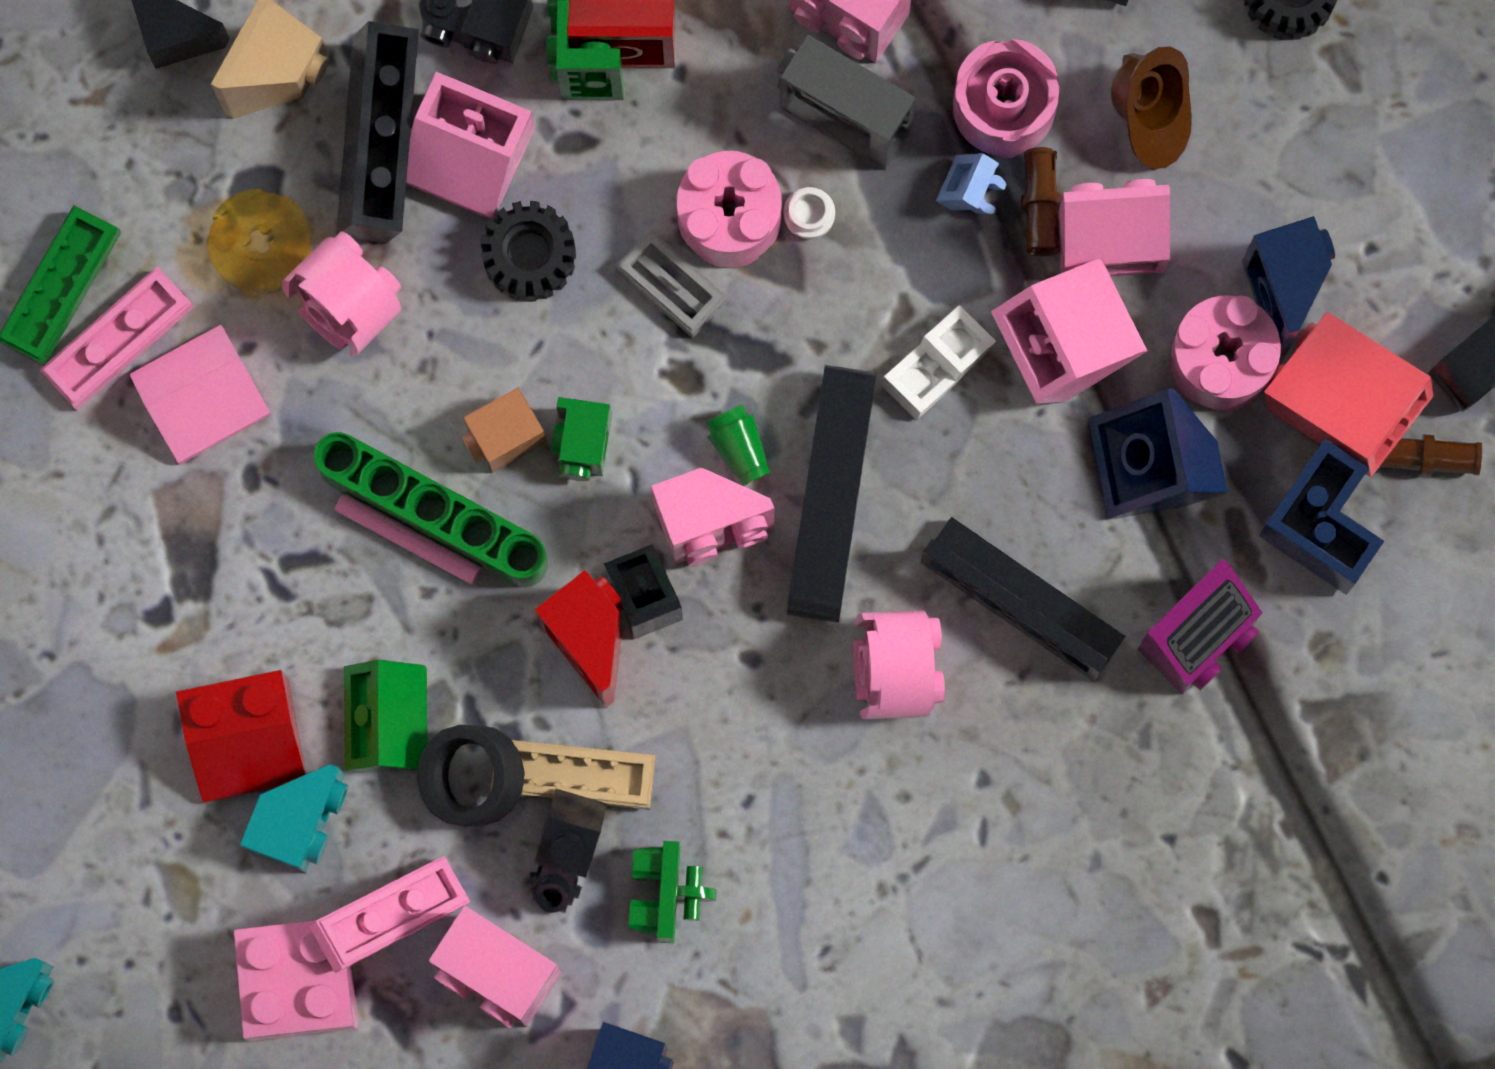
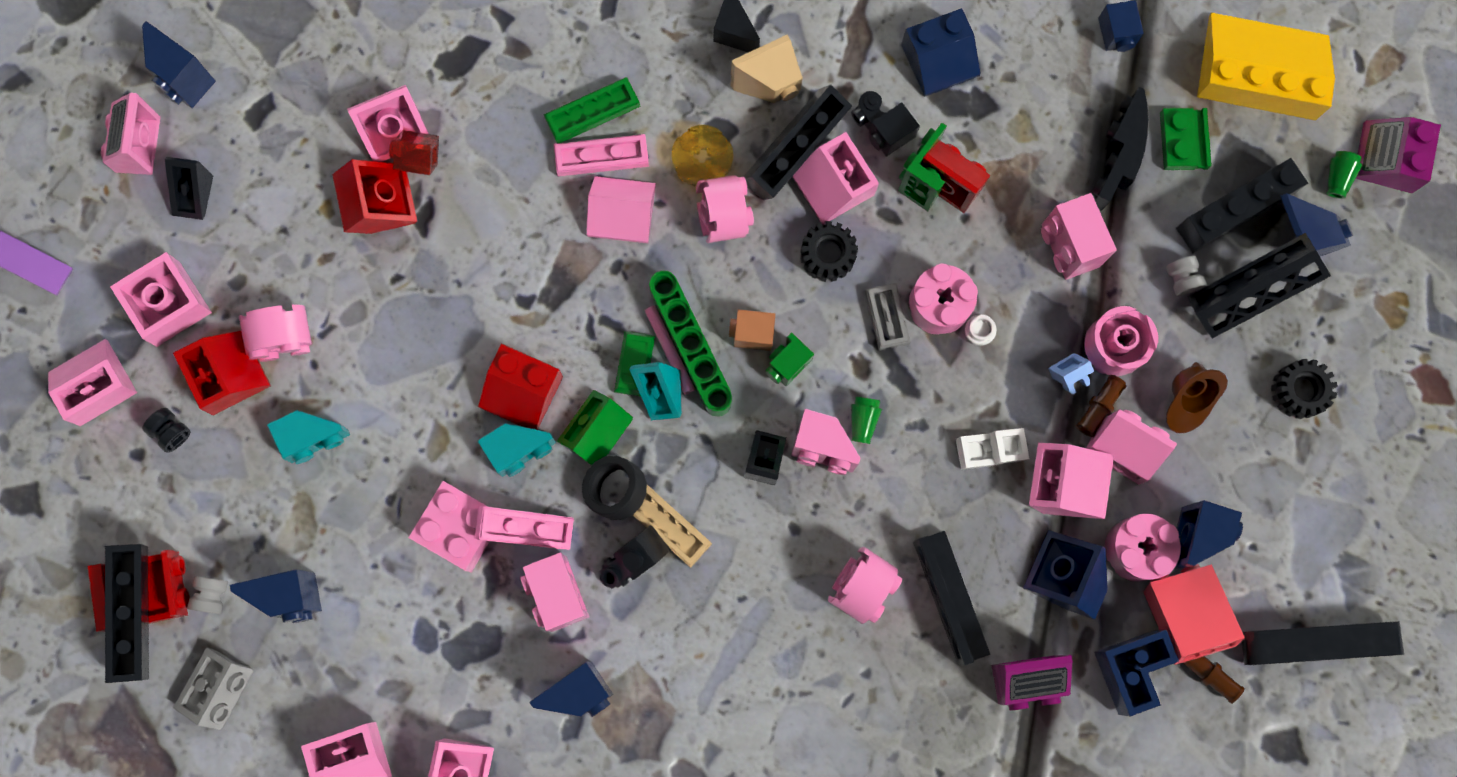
camera: 30 degrees right, 0 degrees up
(374, 592) = (635, 350): none -> green tile
(435, 601) = (659, 389): none -> teal slope
(587, 630) = (723, 457): red slope -> none
(660, 916) = (657, 626): green hips -> none
(831, 493) = (892, 476): black beam -> none
(845, 101) = (1038, 286): dark grey window -> none

